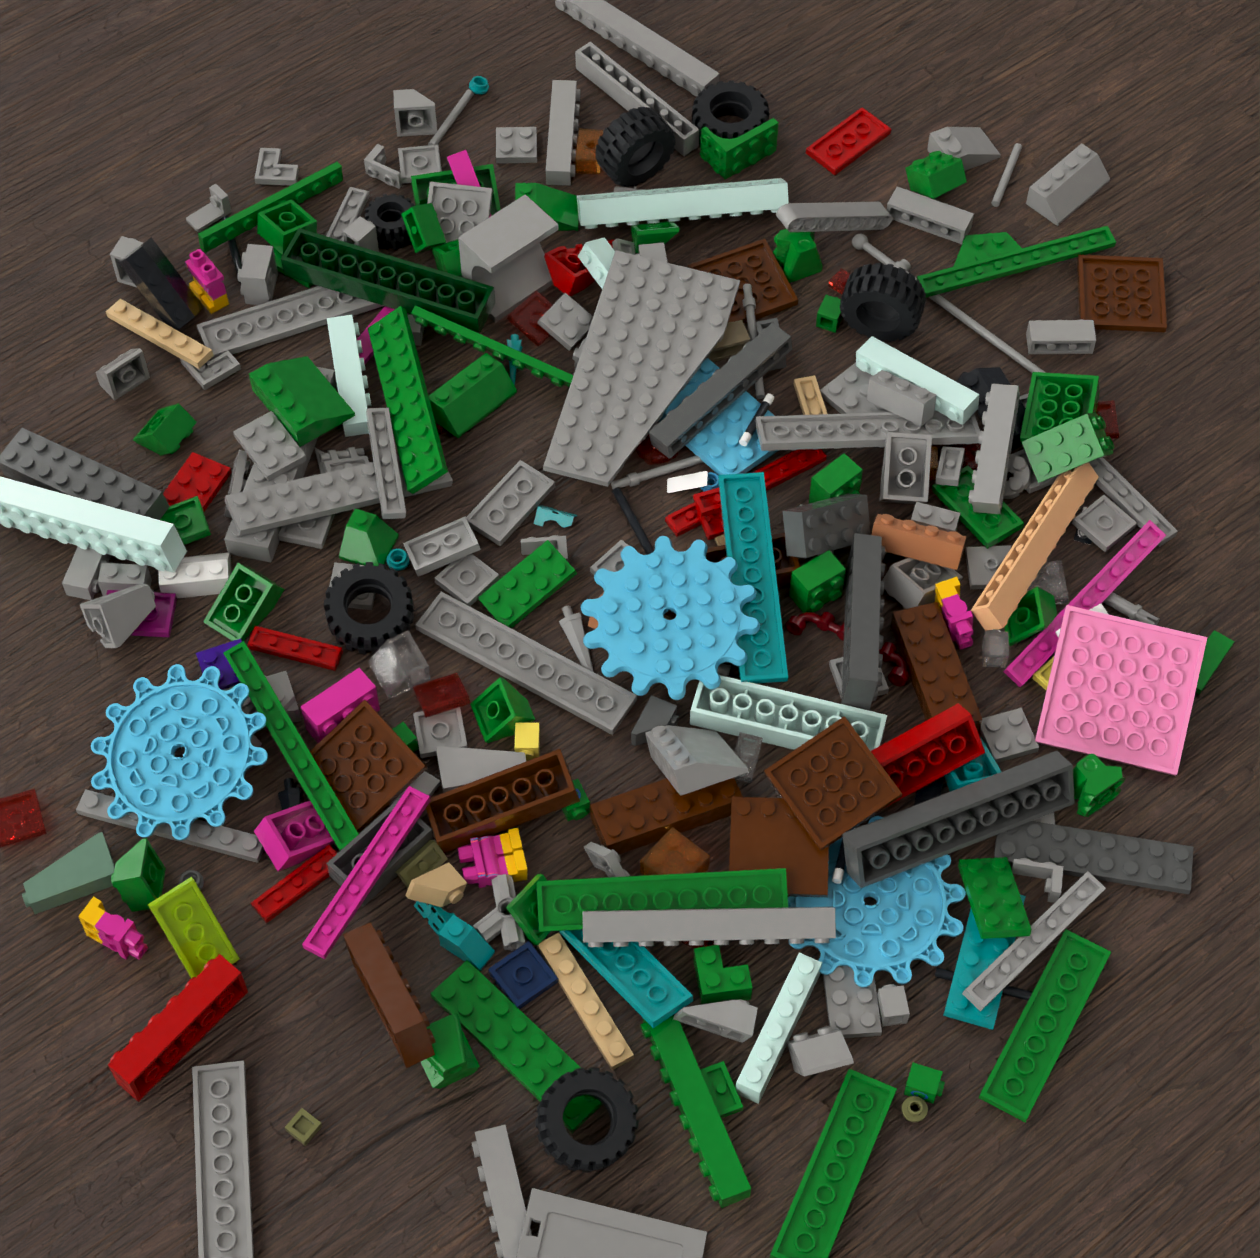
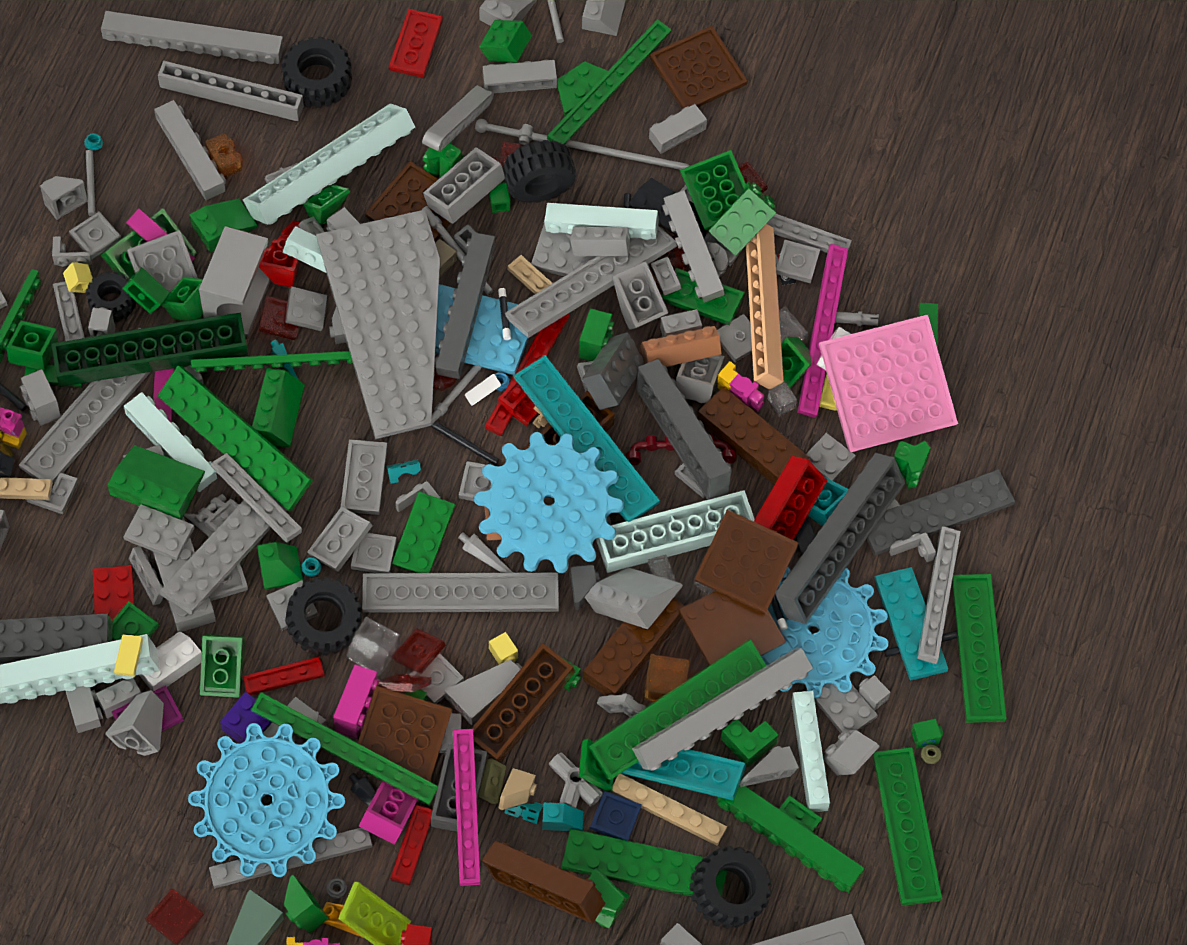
camera: 35 degrees left, 5 degrees up
(140, 534) = (128, 655): none -> light yellow tile
(166, 430) = (58, 562): green slope -> none
(374, 187) = (77, 277): none -> light yellow brick
(399, 715) = (404, 682): none -> clear red plate
(494, 857) = (540, 747): dark pink hips -> none
(499, 710) = (469, 638): green slope -> none
(516, 145) = (159, 178): light grey plate -> none
(635, 146) = (266, 136): black tyre -> none
(738, 153) = (339, 105): green bracket -> none
(798, 280) = (464, 185): none -> light grey brick
(817, 582) = (631, 417): green brick -> none
(994, 898) = (894, 580): green plate -> none

